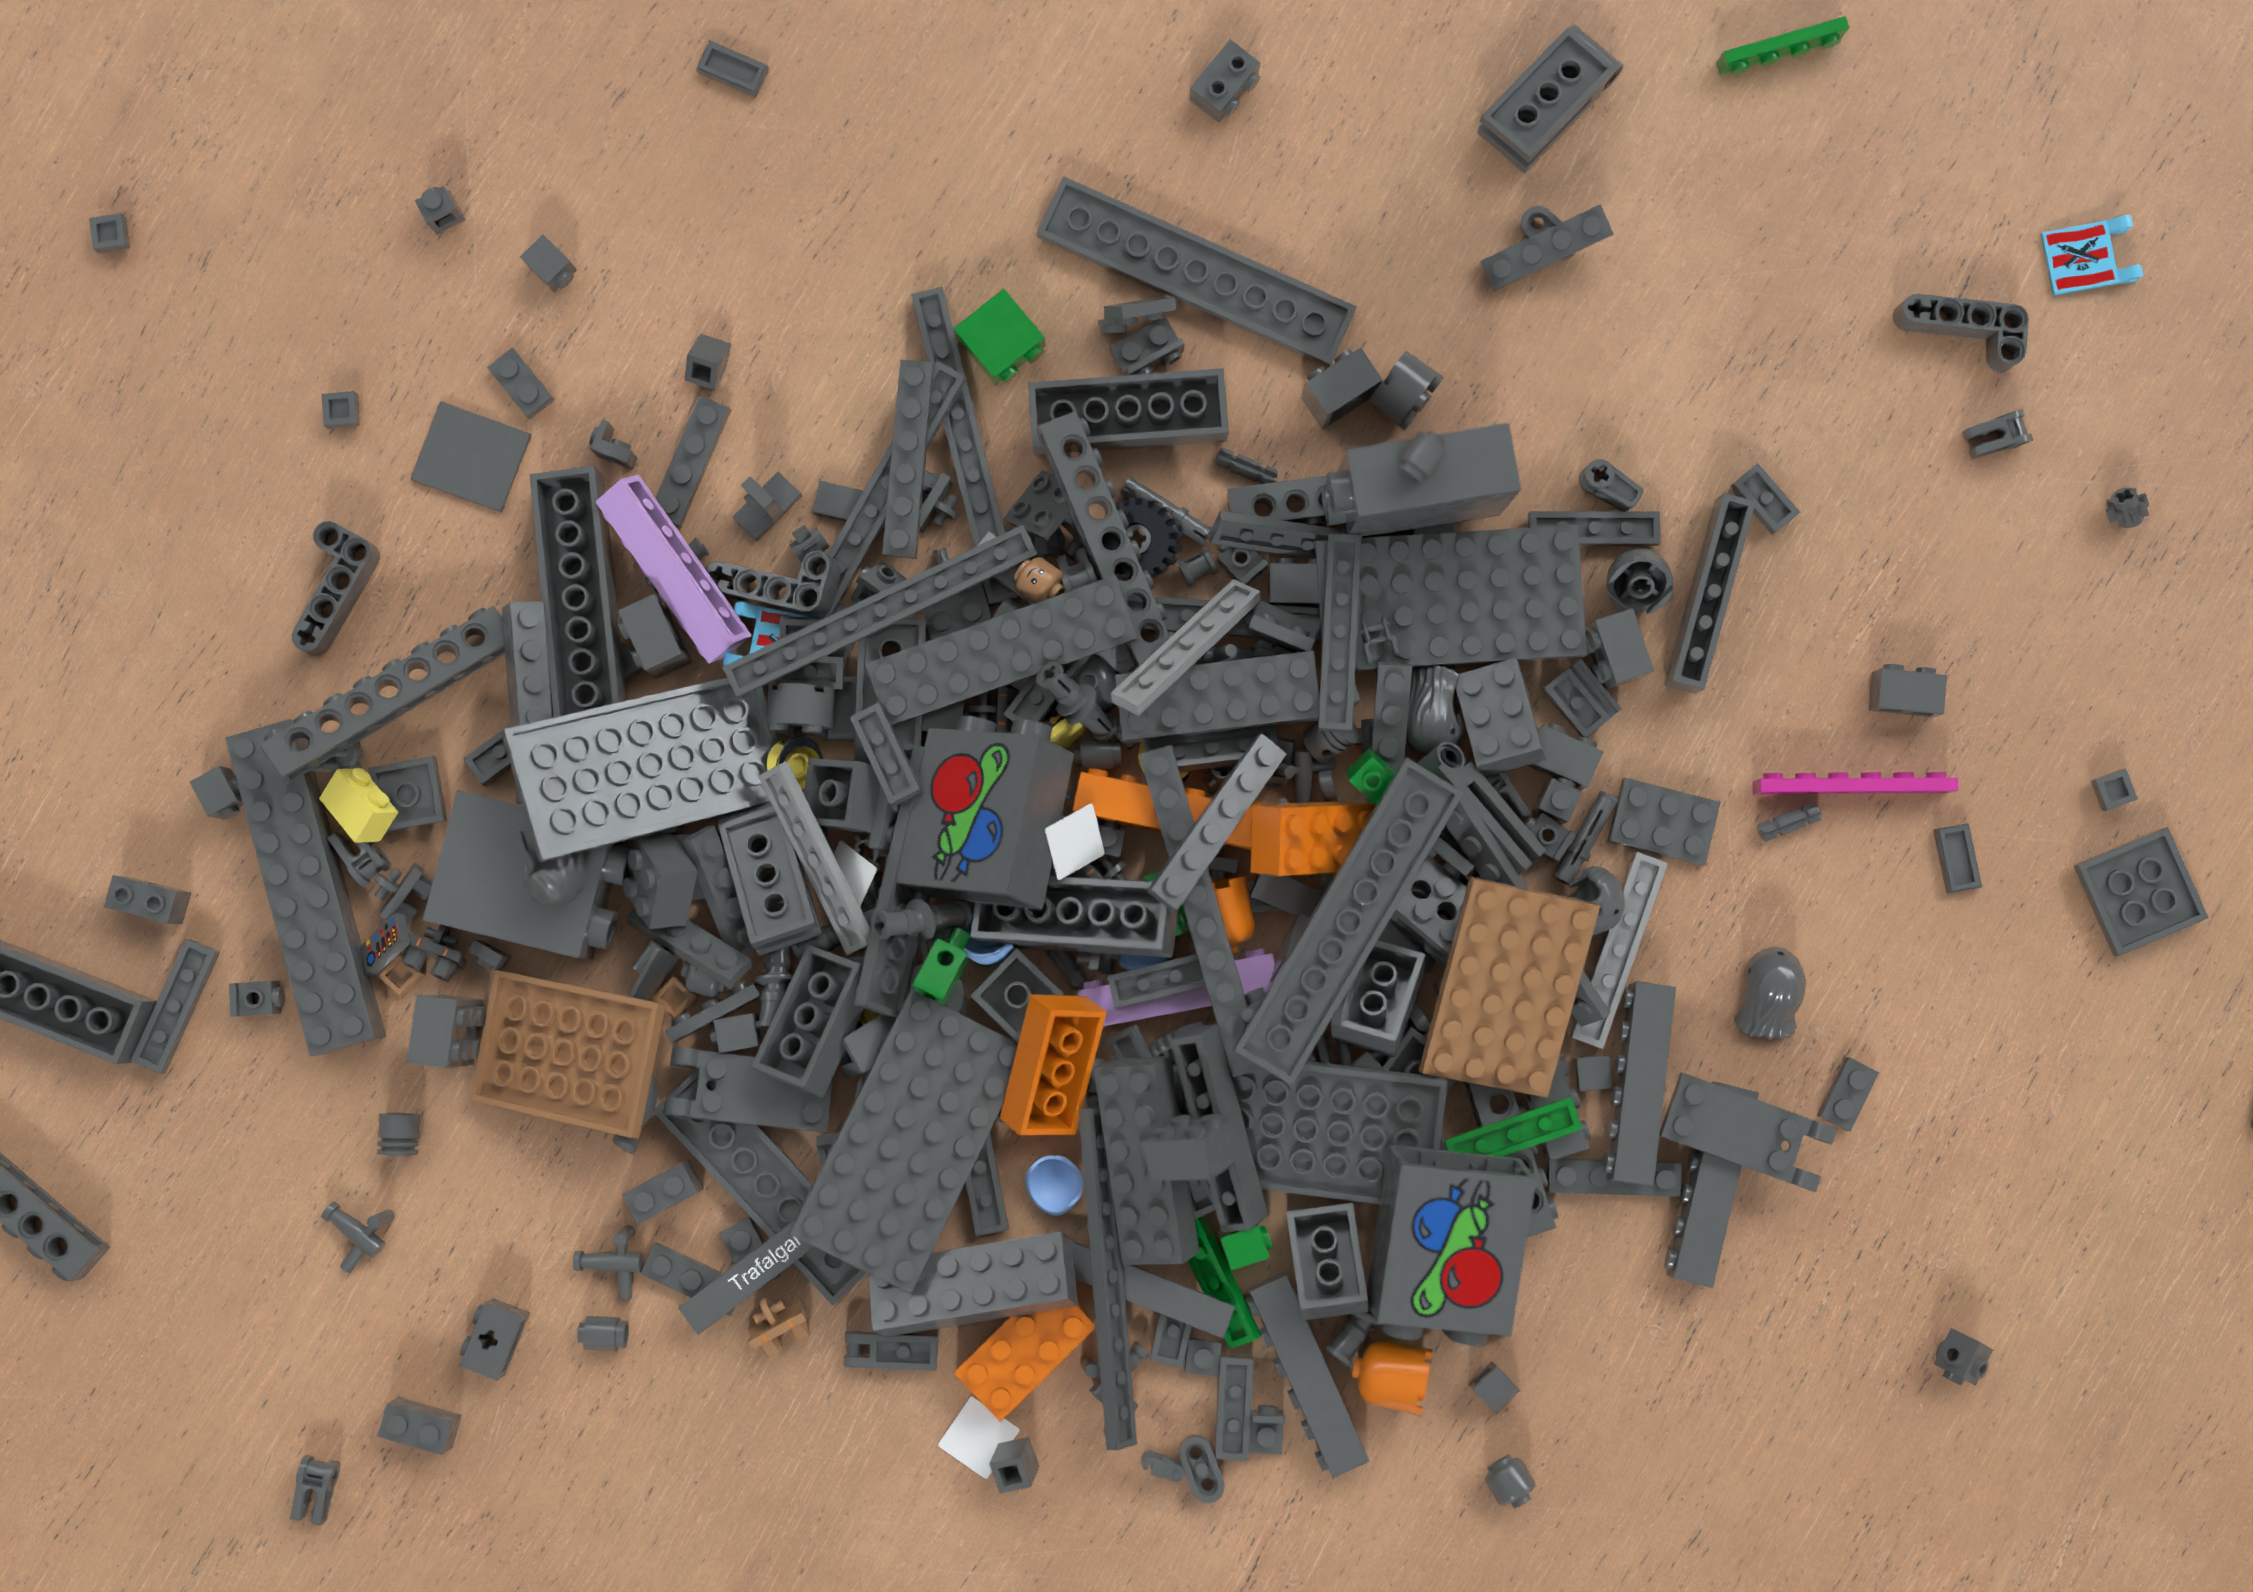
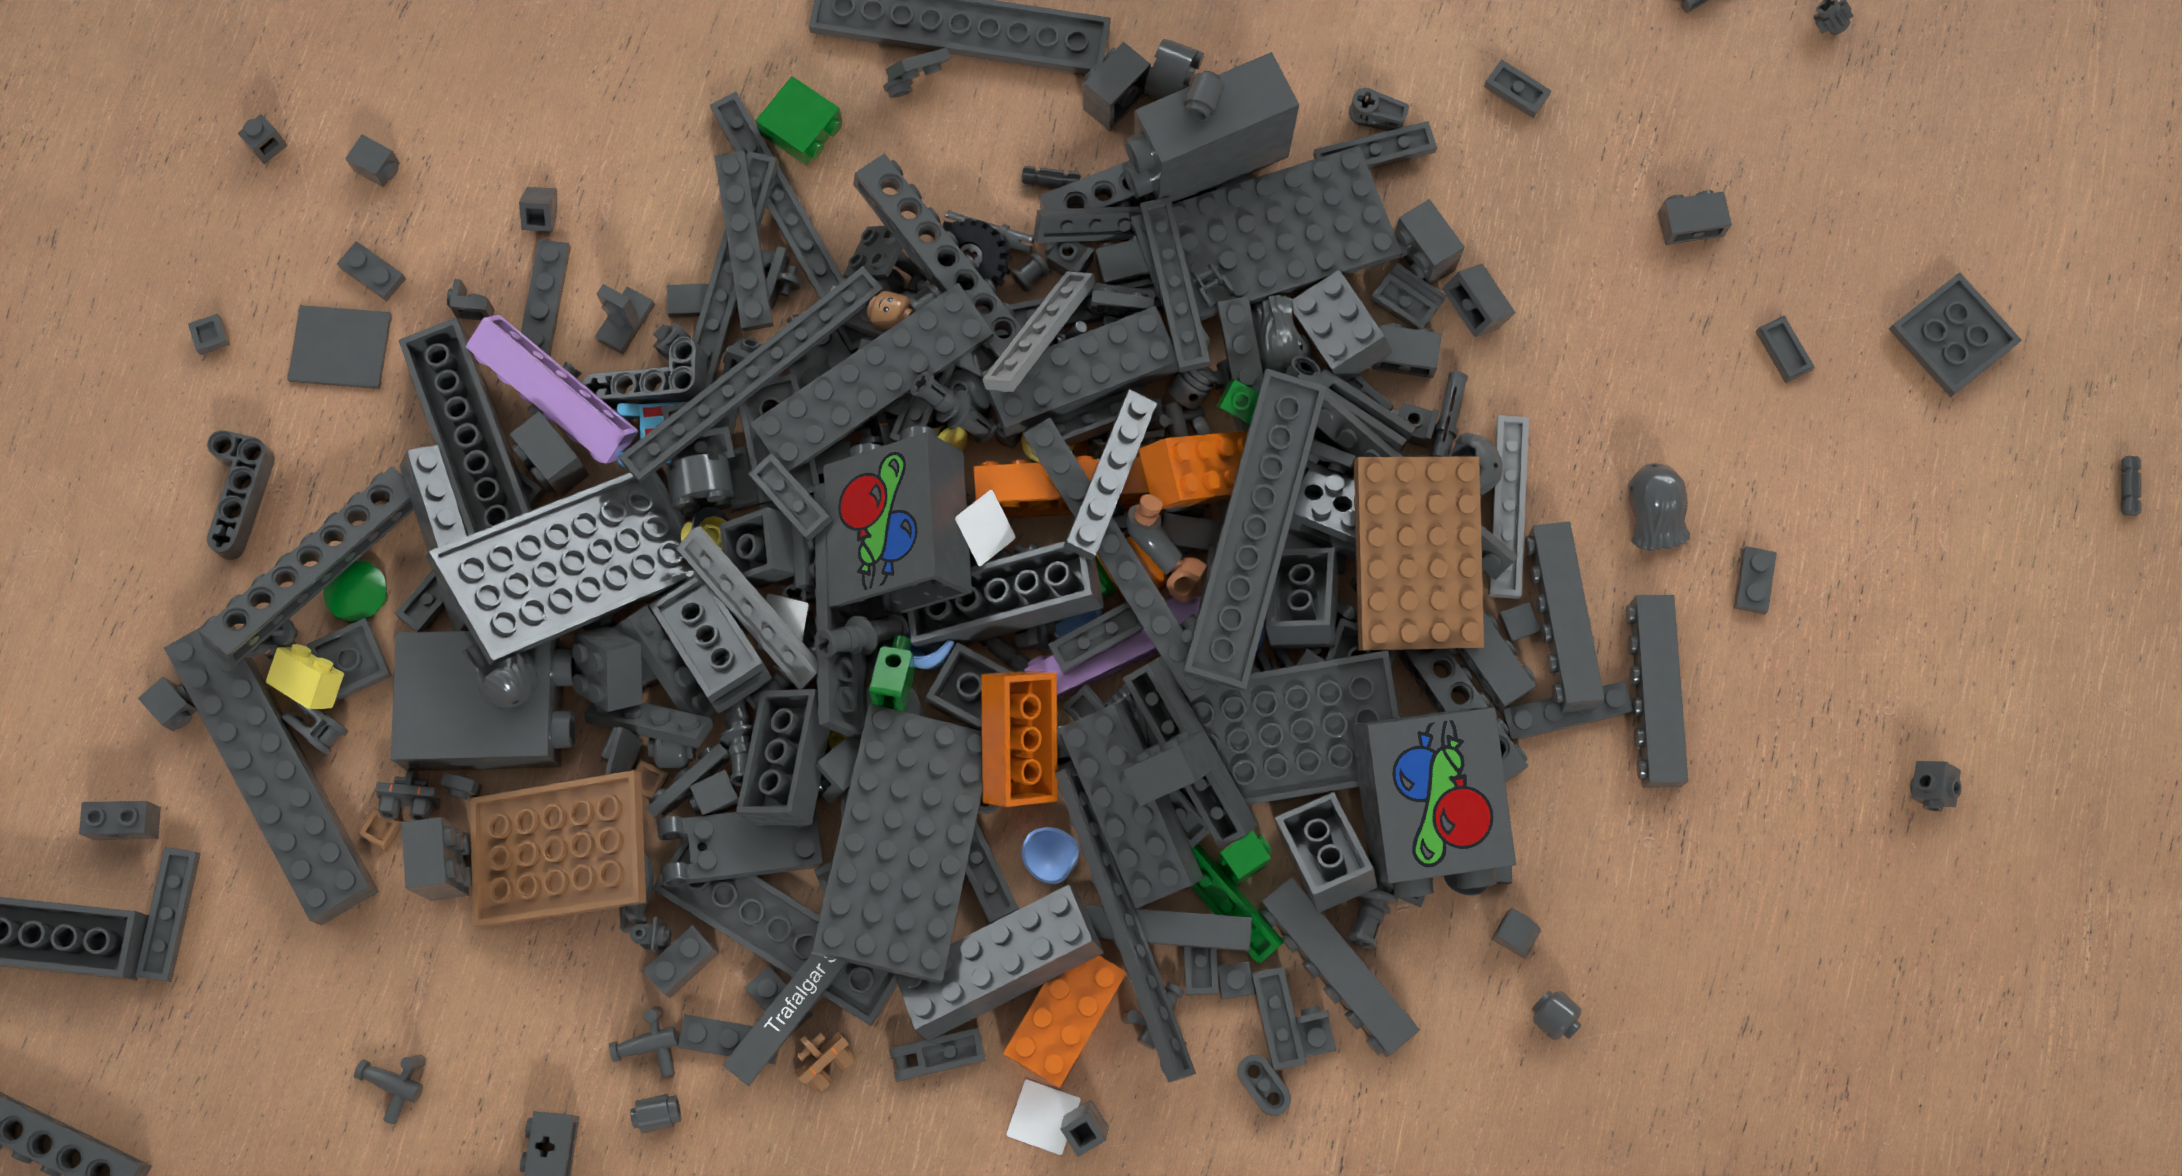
camera: 15 degrees left, 10 degrees down
(242, 998) = (257, 890): dark grey brick -> none
(385, 944) = (359, 800): dark grey tile -> none
(398, 1133) = (412, 975): dark grey piece -> none
(413, 881) = (361, 765): dark grey hips -> none
(431, 726) = (356, 592): none -> green dish
(640, 1163) = (652, 936): none -> dark grey hinge
(1098, 755) = (985, 452): dark grey brick -> none
(1112, 838) = (1021, 527): dark grey brick -> none
(1136, 409) = (941, 148): dark grey brick -> none
(1148, 348) = (934, 101): dark grey bracket -> none
(1163, 1466) = (1227, 1092): dark grey piece -> none
(1238, 891) = (1147, 531): none -> piece
(1393, 1375) = (1419, 943): orange cylinder -> none
(1518, 1130) = (1468, 682): green plate -> none
(1557, 799) = (1413, 387): dark grey brick -> none
(1639, 581) = (1429, 177): dark grey cylinder -> none
(1653, 724) = (1478, 300): none -> dark grey brick
(1664, 821) = (1514, 385): dark grey plate -> none
(1710, 593) = (1494, 177): dark grey brick -> none
(1741, 1129) = (1670, 630): dark grey hinge -> none
(1789, 822) = (1626, 356): dark grey axle -> none
(1868, 784) = (1682, 305): dark pink plate -> none
(2114, 790) = (1902, 254): dark grey plate -> none

